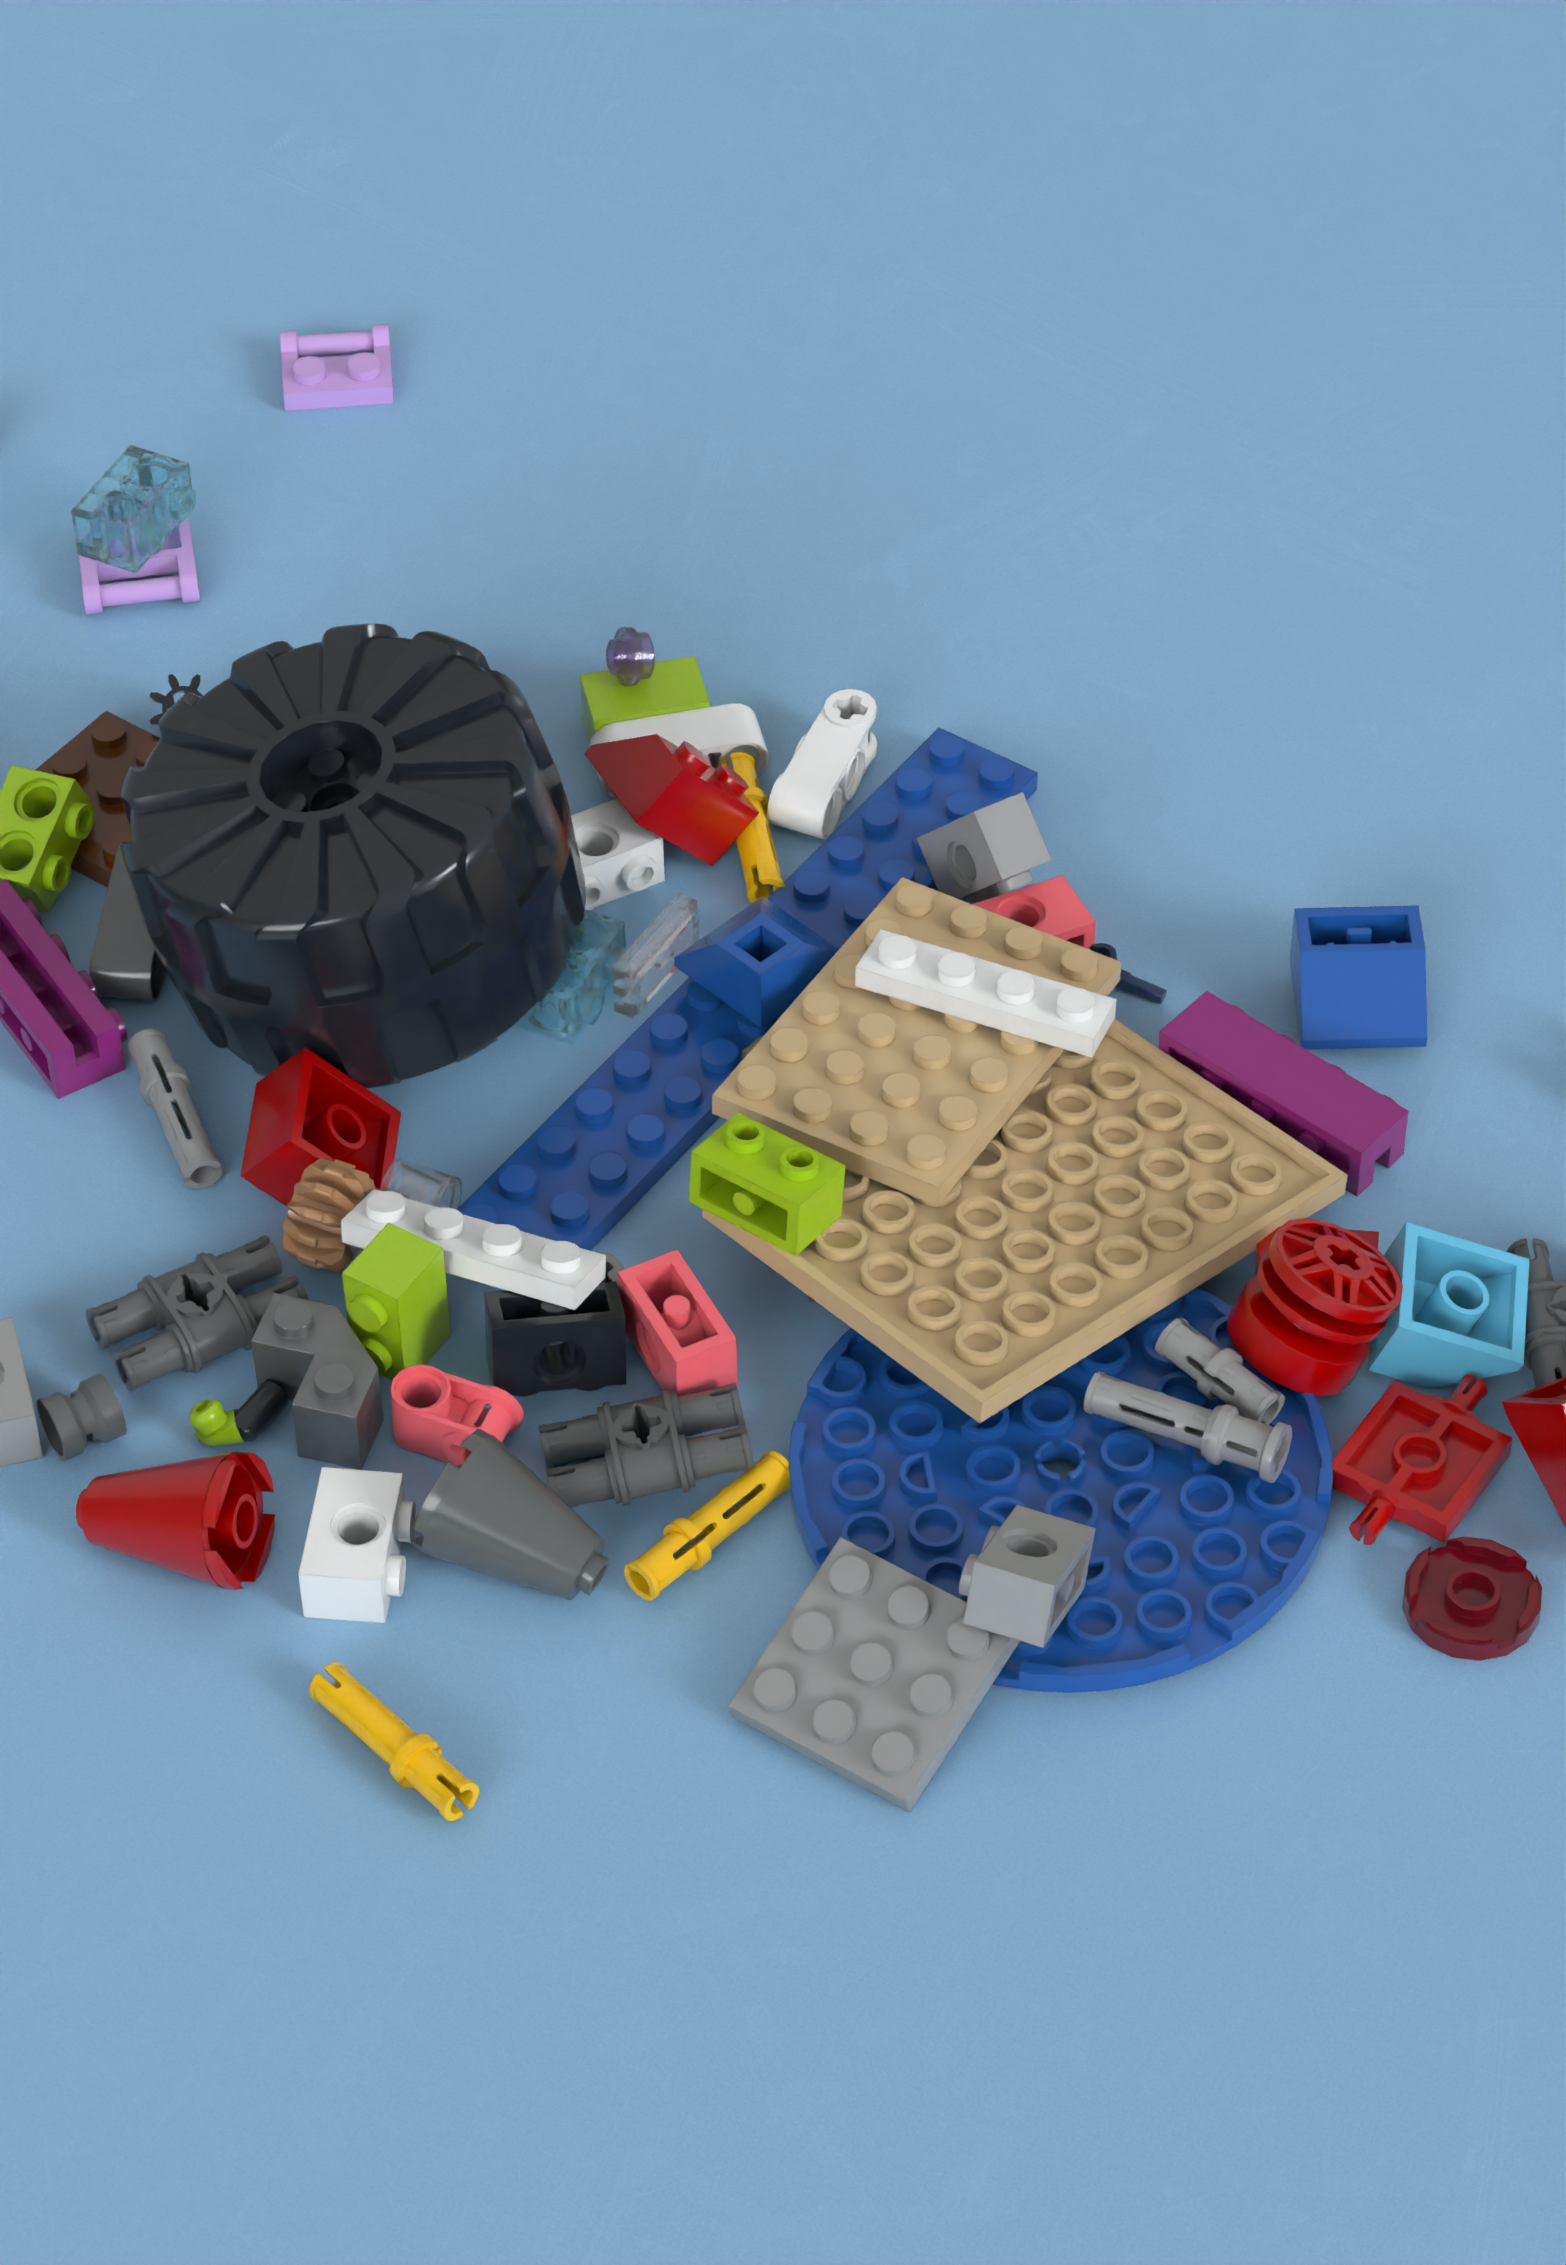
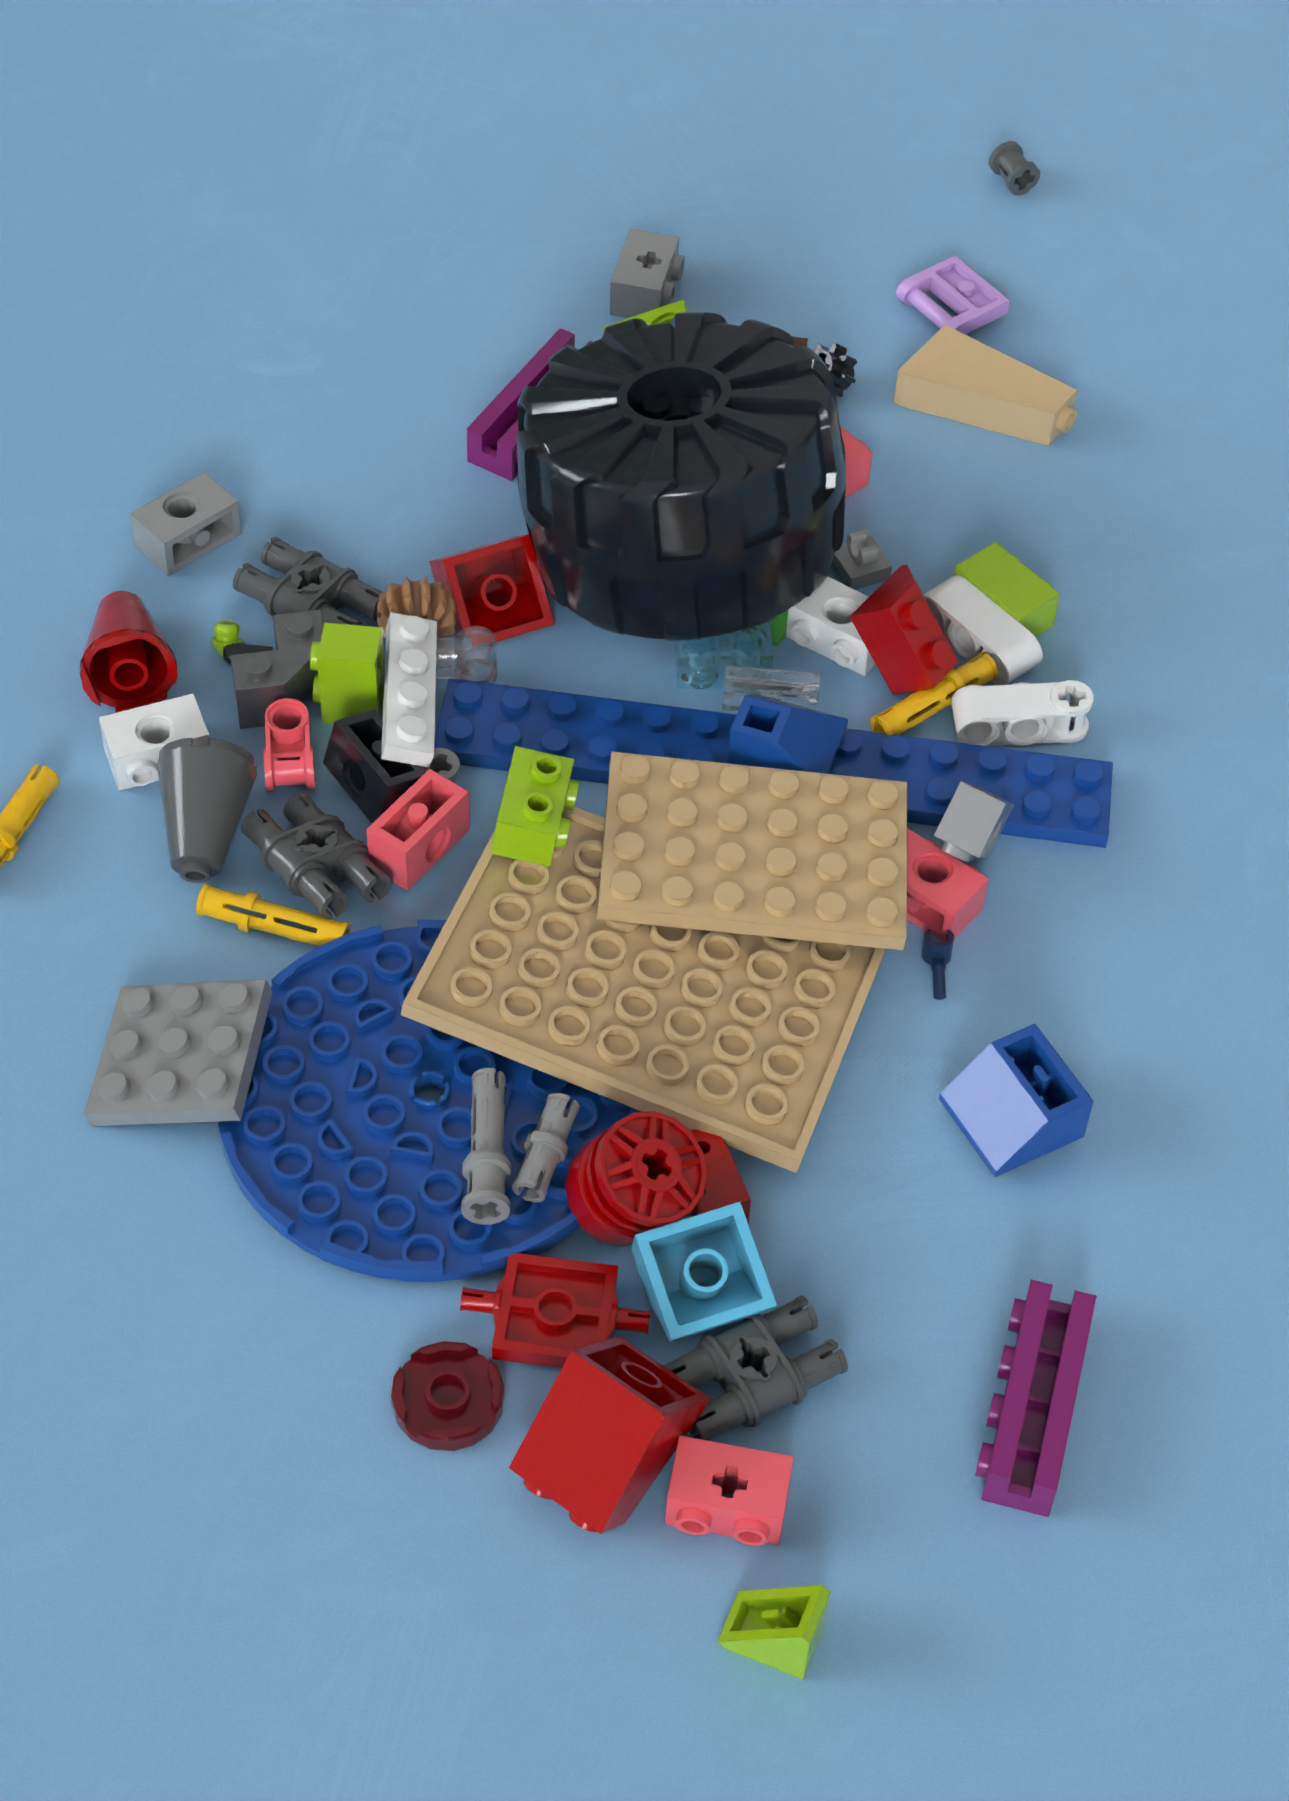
camera: 60 degrees right, 5 degrees up
(88, 1413) = (195, 574): dark grey wheel -> none
(133, 509) = (979, 265): clear light blue brick -> none
(193, 1155) = (493, 502): light grey pin -> none
(314, 587) = (984, 389): none -> tan slope
(336, 380) = (1219, 325): lavender plate -> none
(630, 656) = (1016, 553): clear purple plate -> none
(985, 993) = (800, 863): white plate -> none
(1026, 1575) = (272, 1092): light grey brick -> none
(1289, 1087) = (874, 1095): magenta brick -> none

